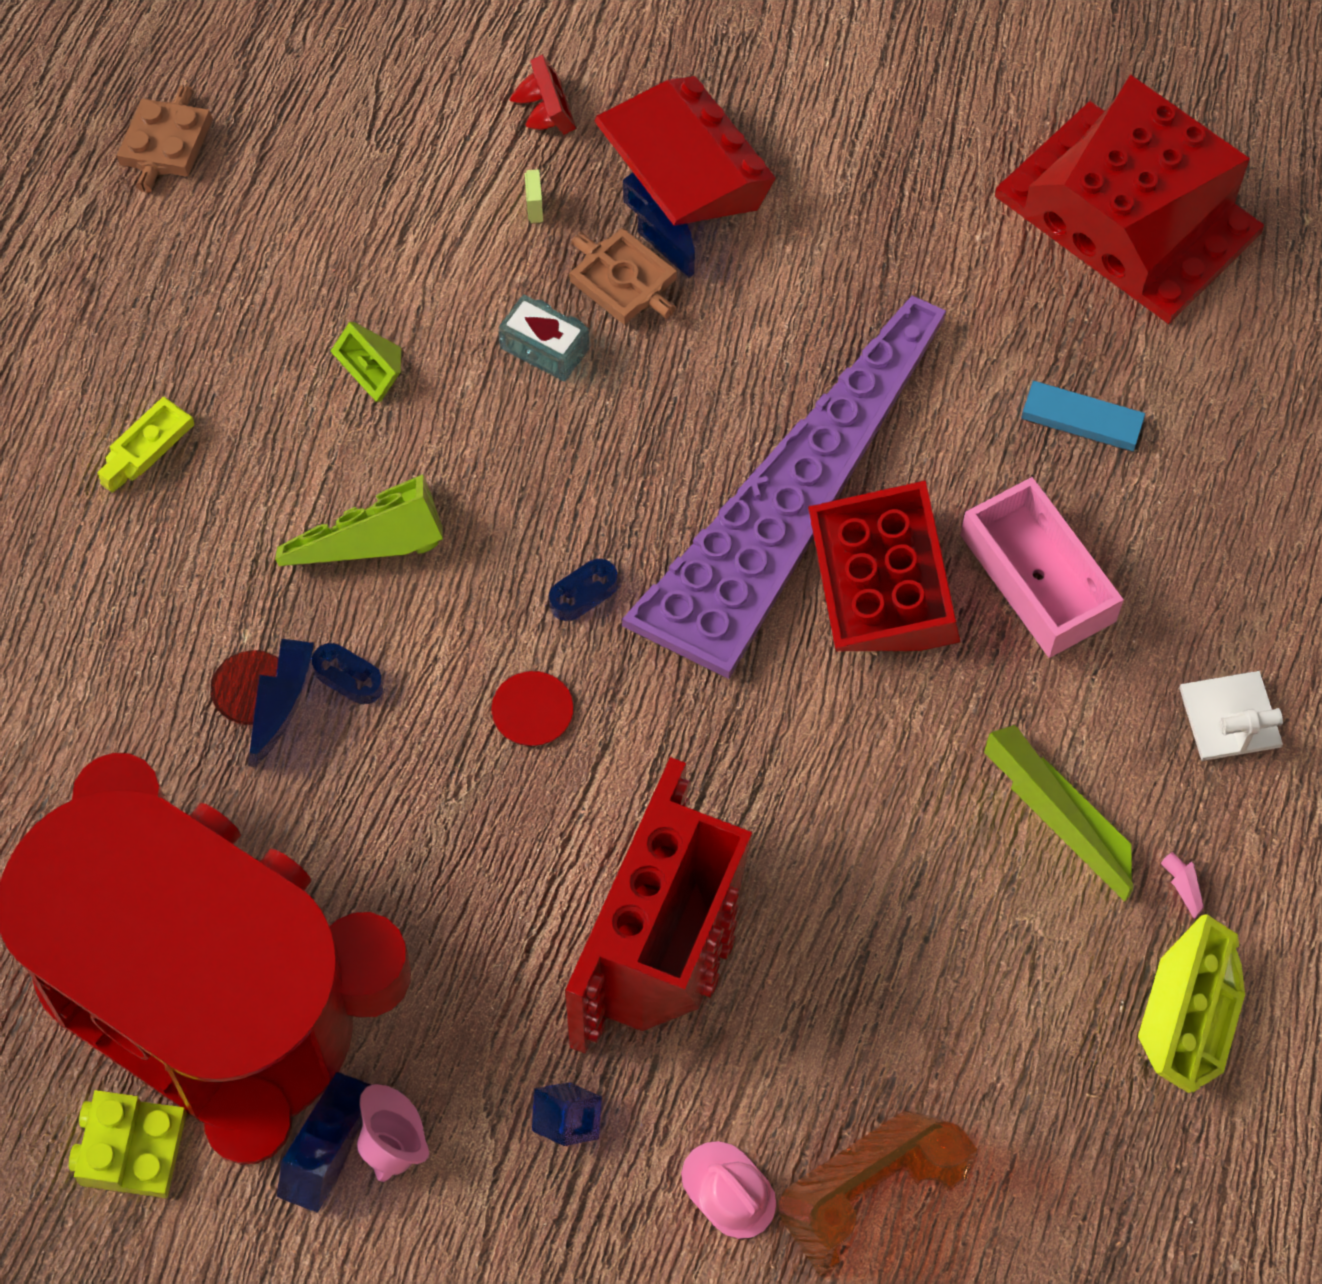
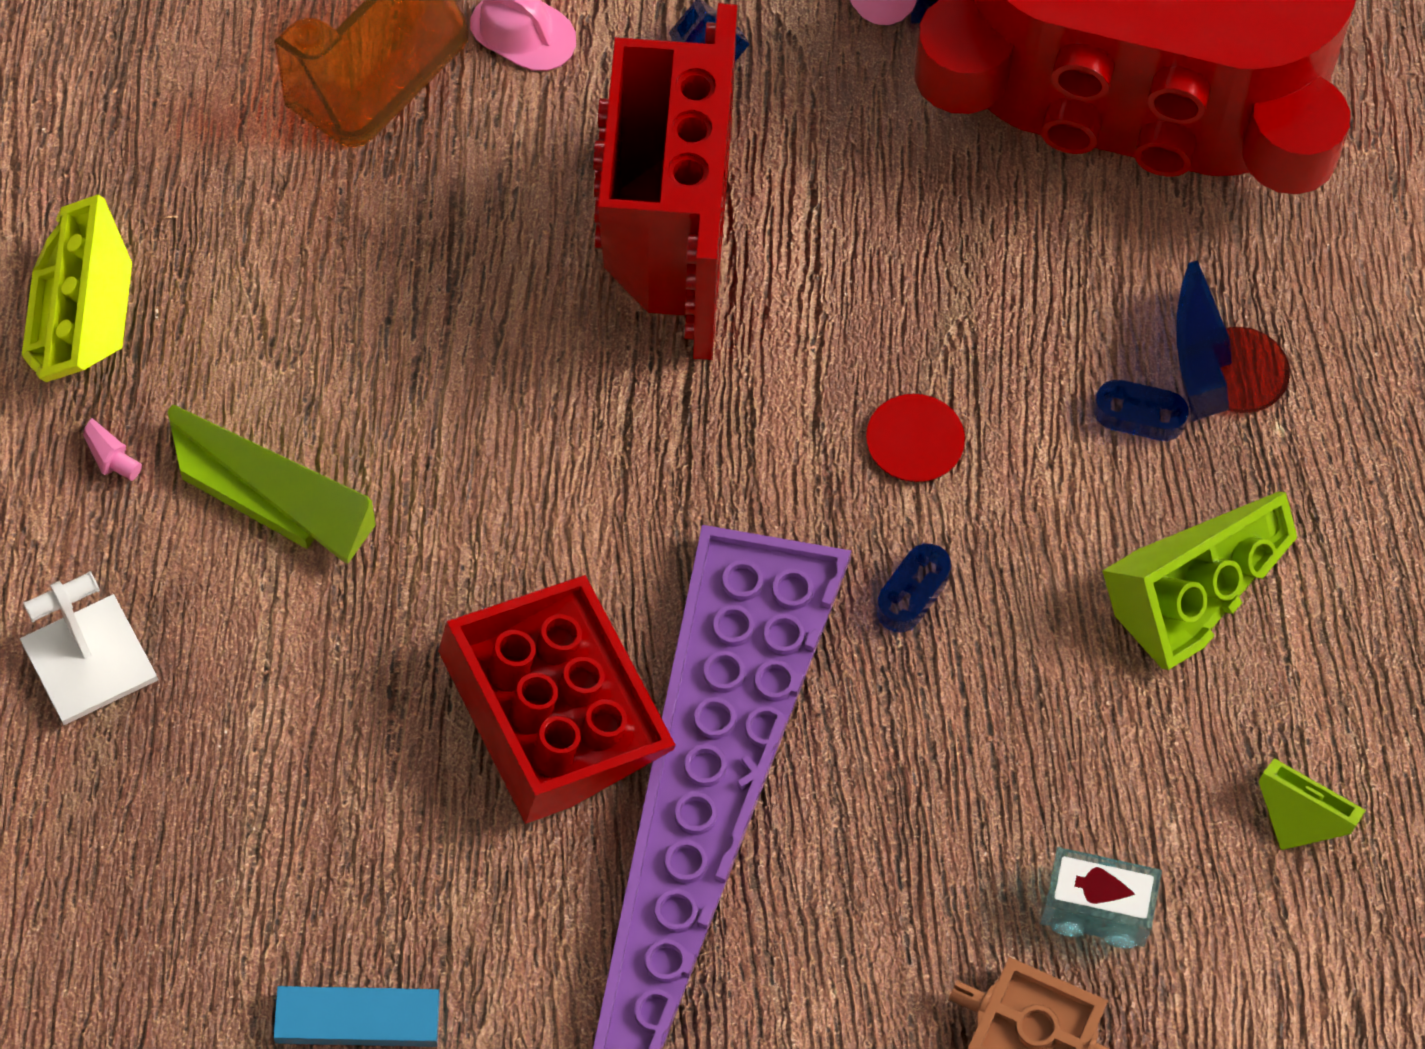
camera: 160 degrees right, 0 degrees up
(1026, 535) = (332, 719): bright pink piece -> none

